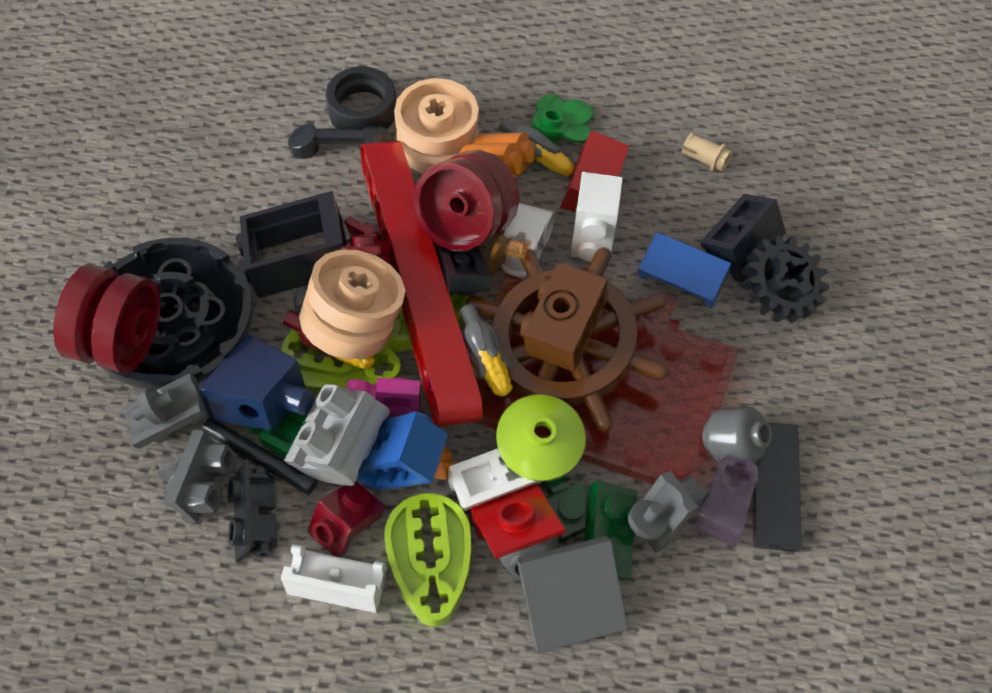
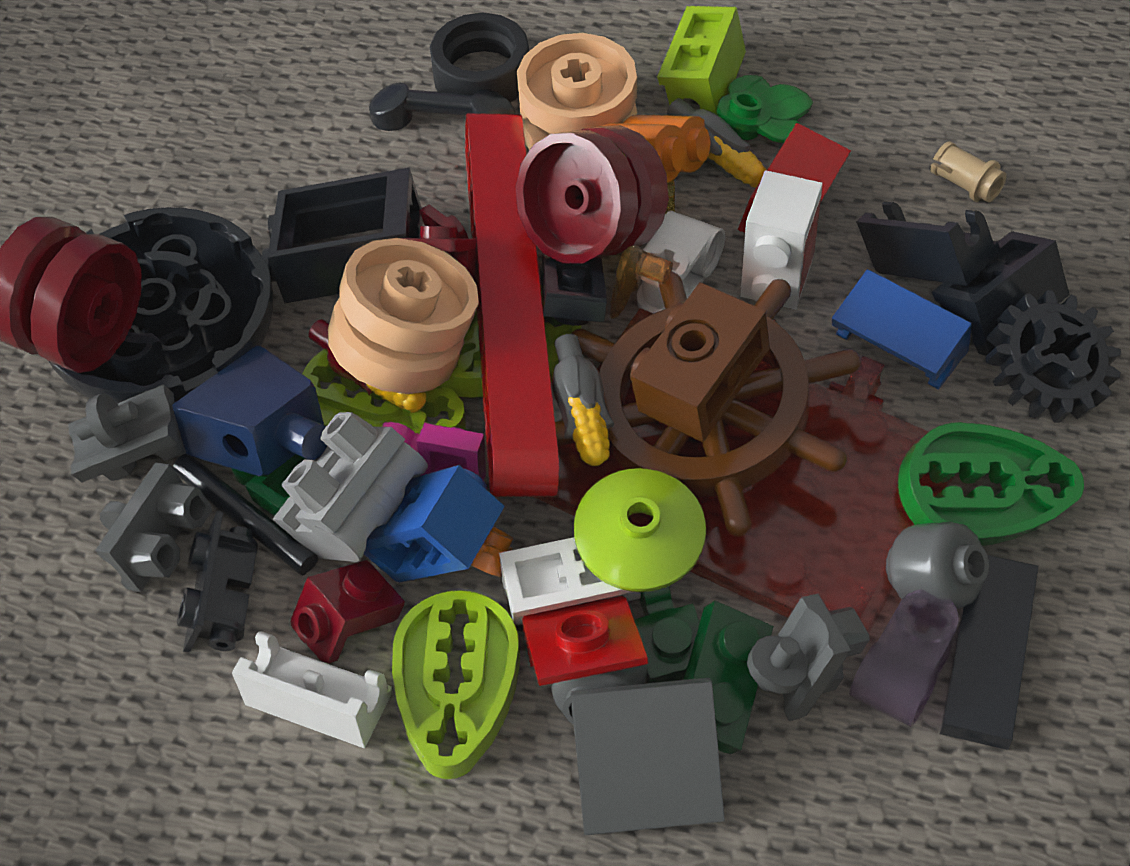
camera: 15 degrees right, 5 degrees down
(516, 85) = (703, 56): none -> lime hinge
(692, 213) = (927, 249): none -> black hinge
(766, 354) = (1008, 459): none -> green piece

